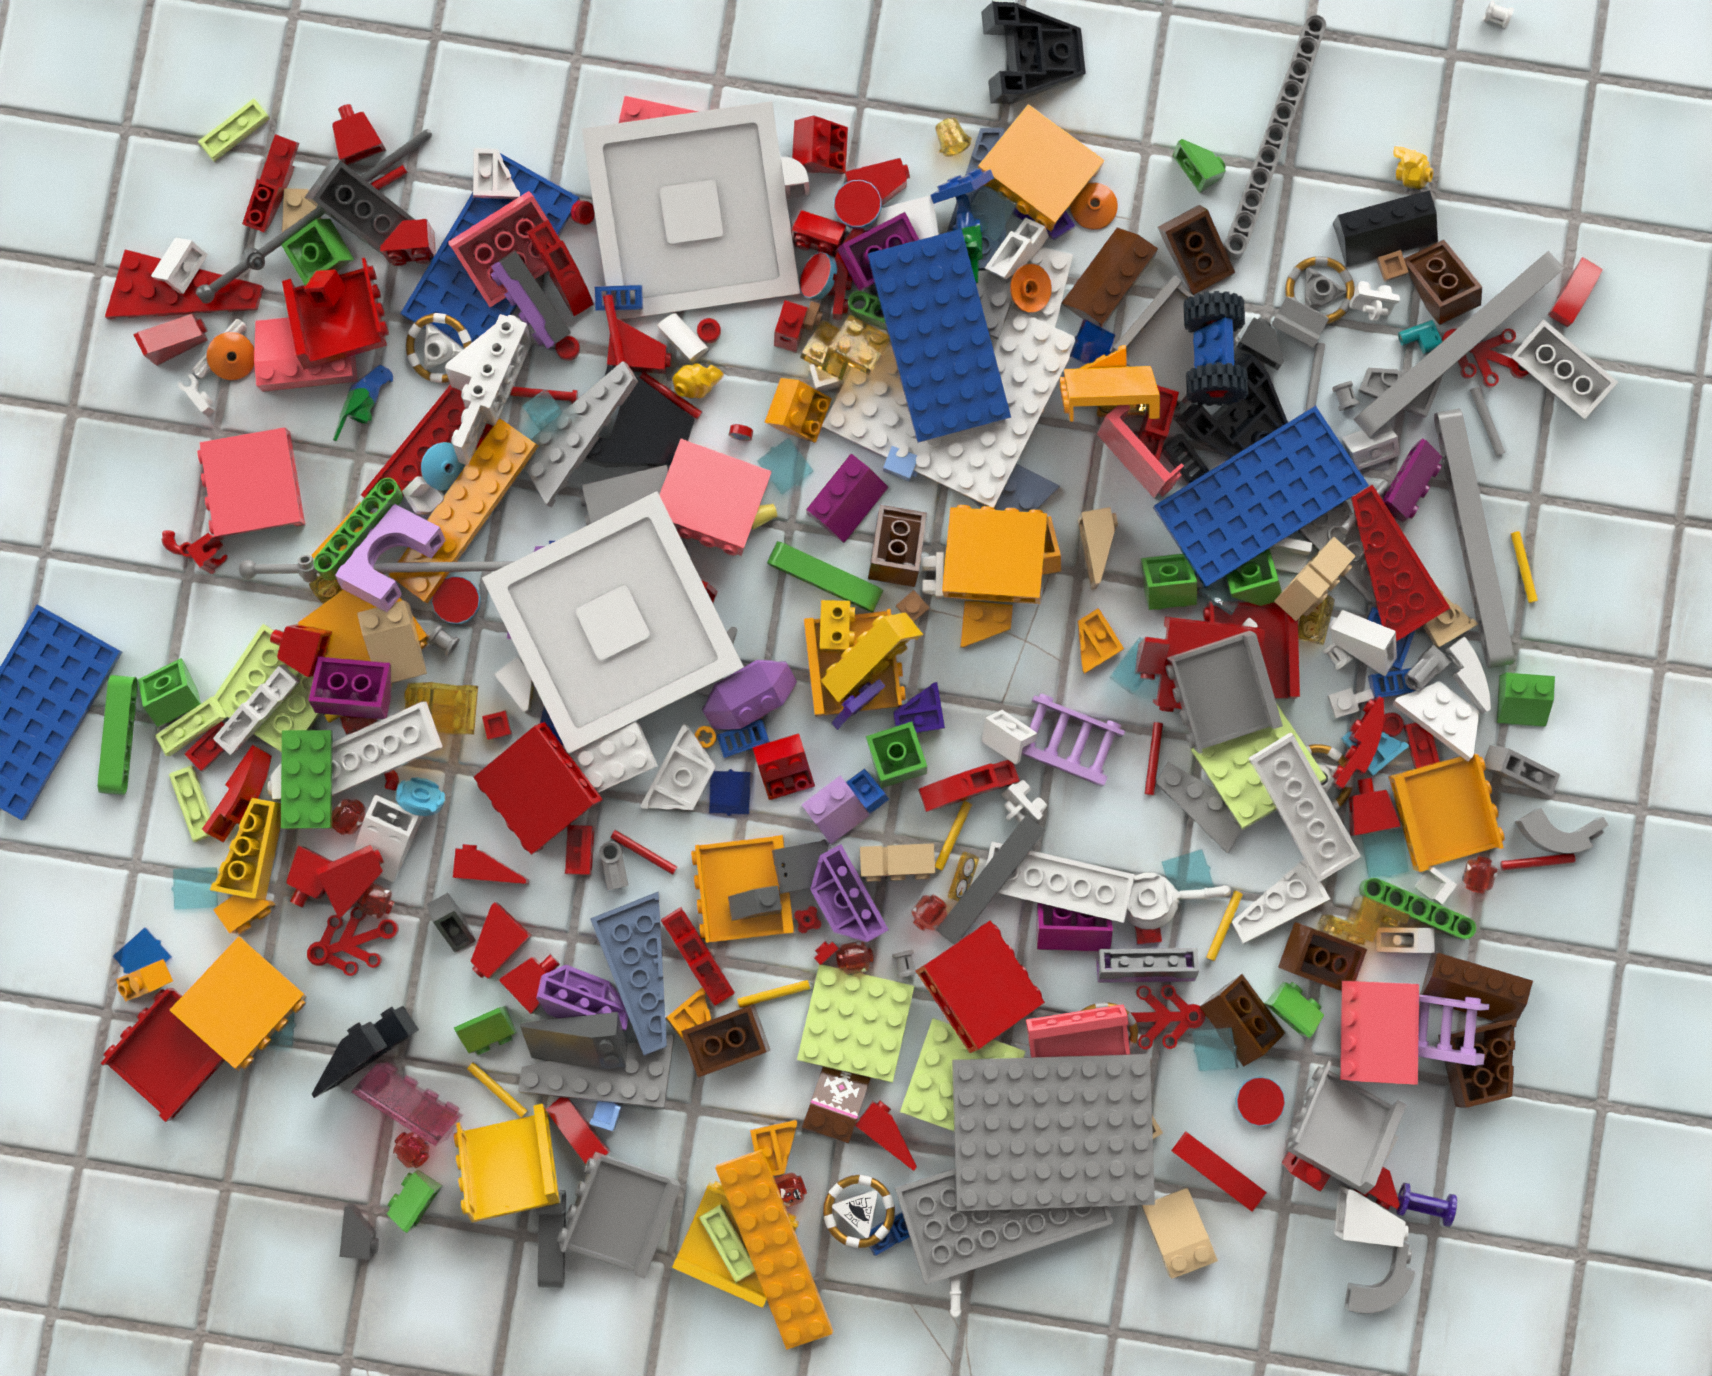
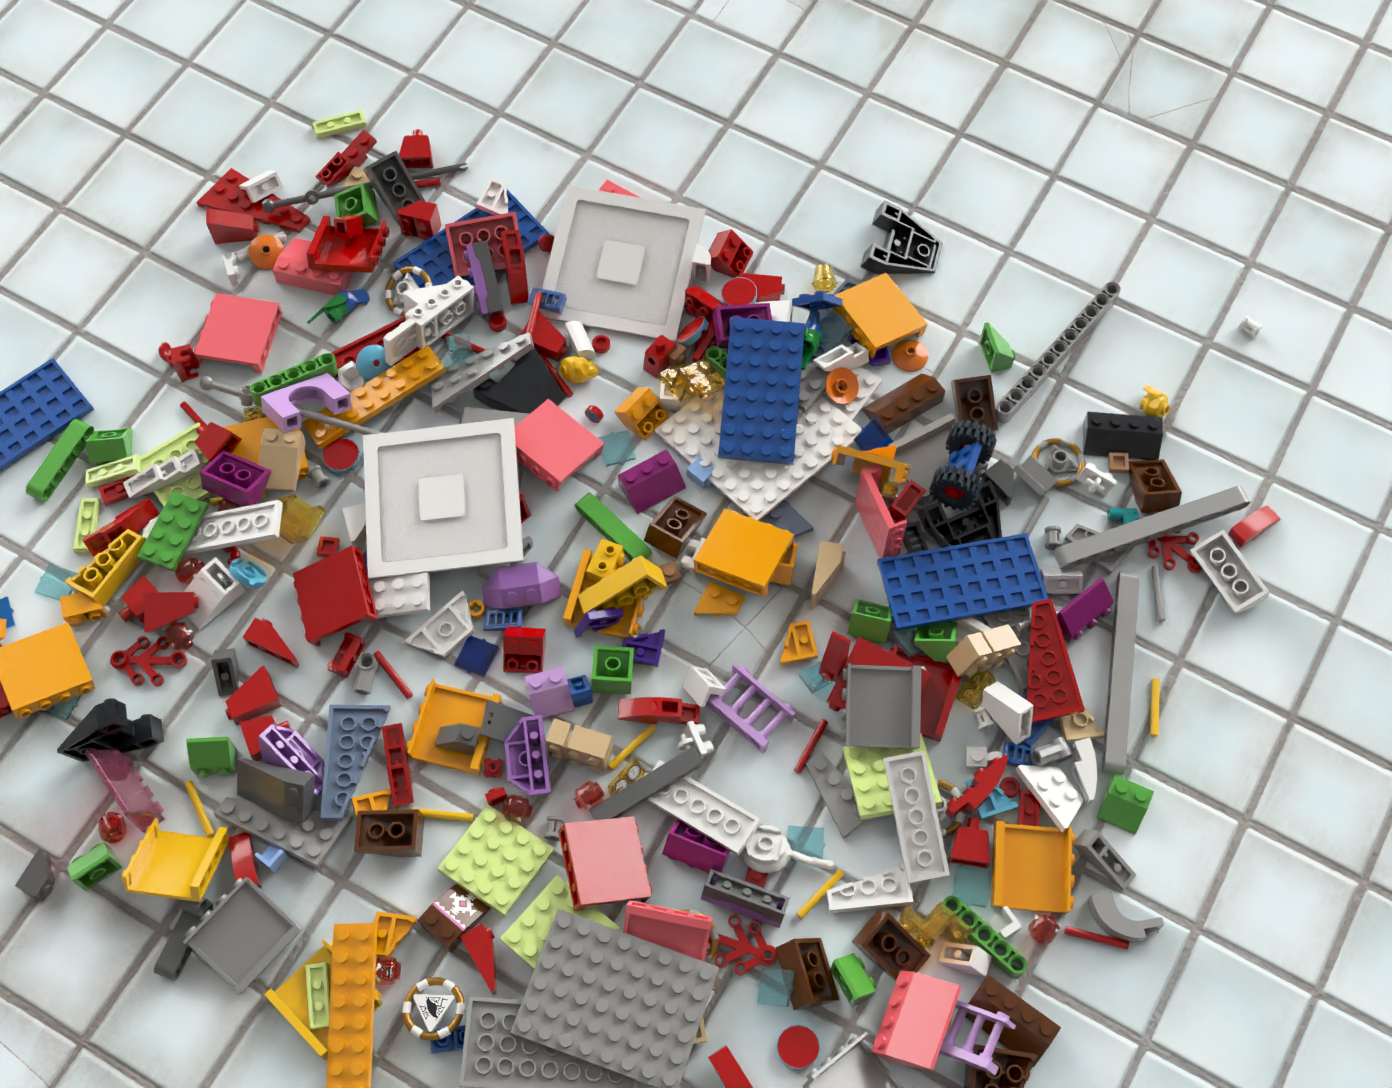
camera: 20 degrees right, 20 degrees down
(253, 616) = (191, 413): none -> red bar
(764, 514) = (584, 473): light yellow cone -> none

